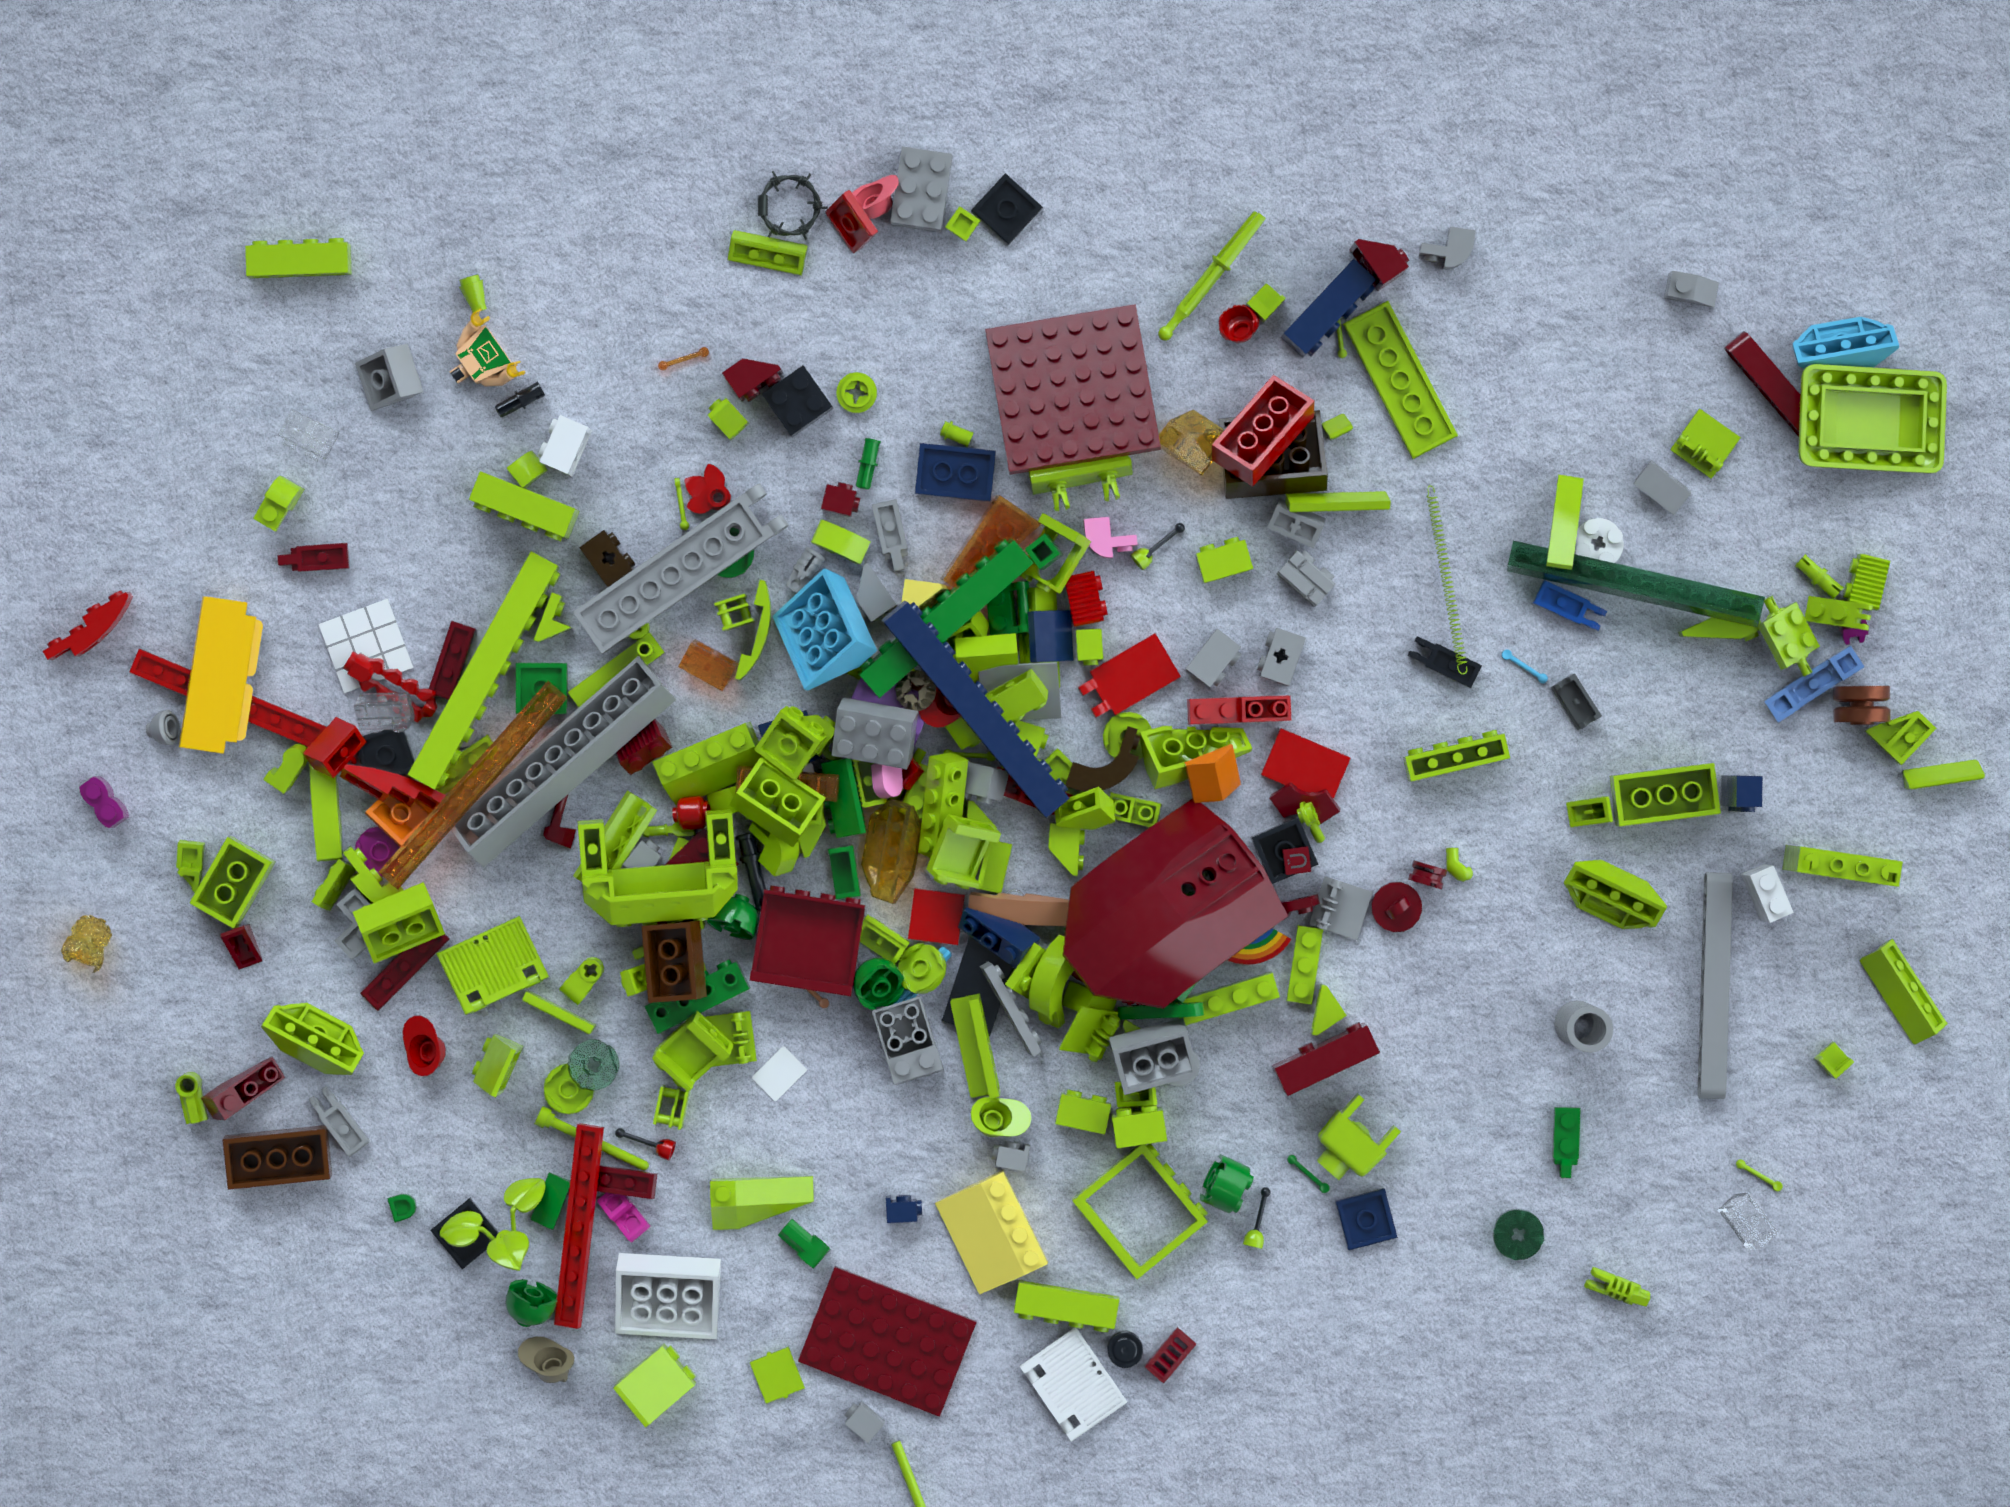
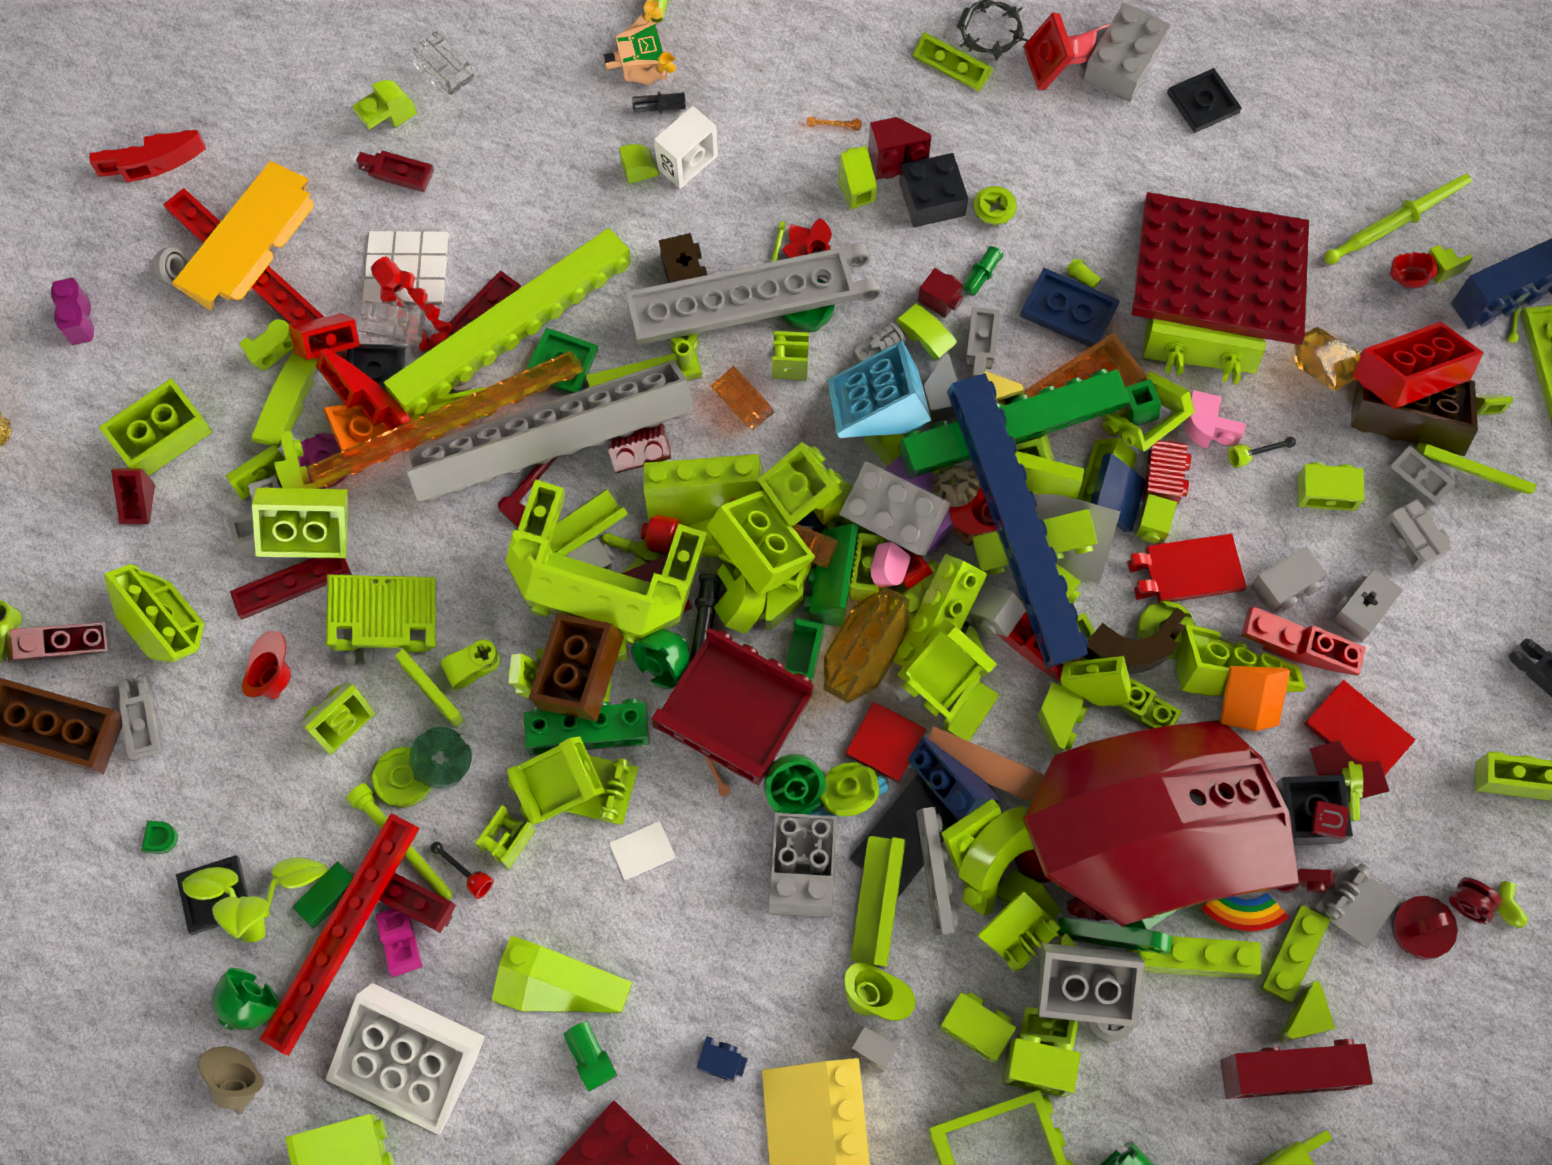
camera: 20 degrees right, 20 degrees down
(190, 861) = (126, 394): lime slope -> none
(389, 376) = (544, 40): light grey slope -> none
(521, 504) = (621, 185): lime brick -> none
(548, 626) = (596, 306): lime slope -> none
(748, 662) = (786, 409): lime slope -> none
(882, 939) = (817, 741): lime hinge -> none
(962, 224) = (1157, 92): lime tile -> none
(1002, 610) = (1075, 444): green plate -> none

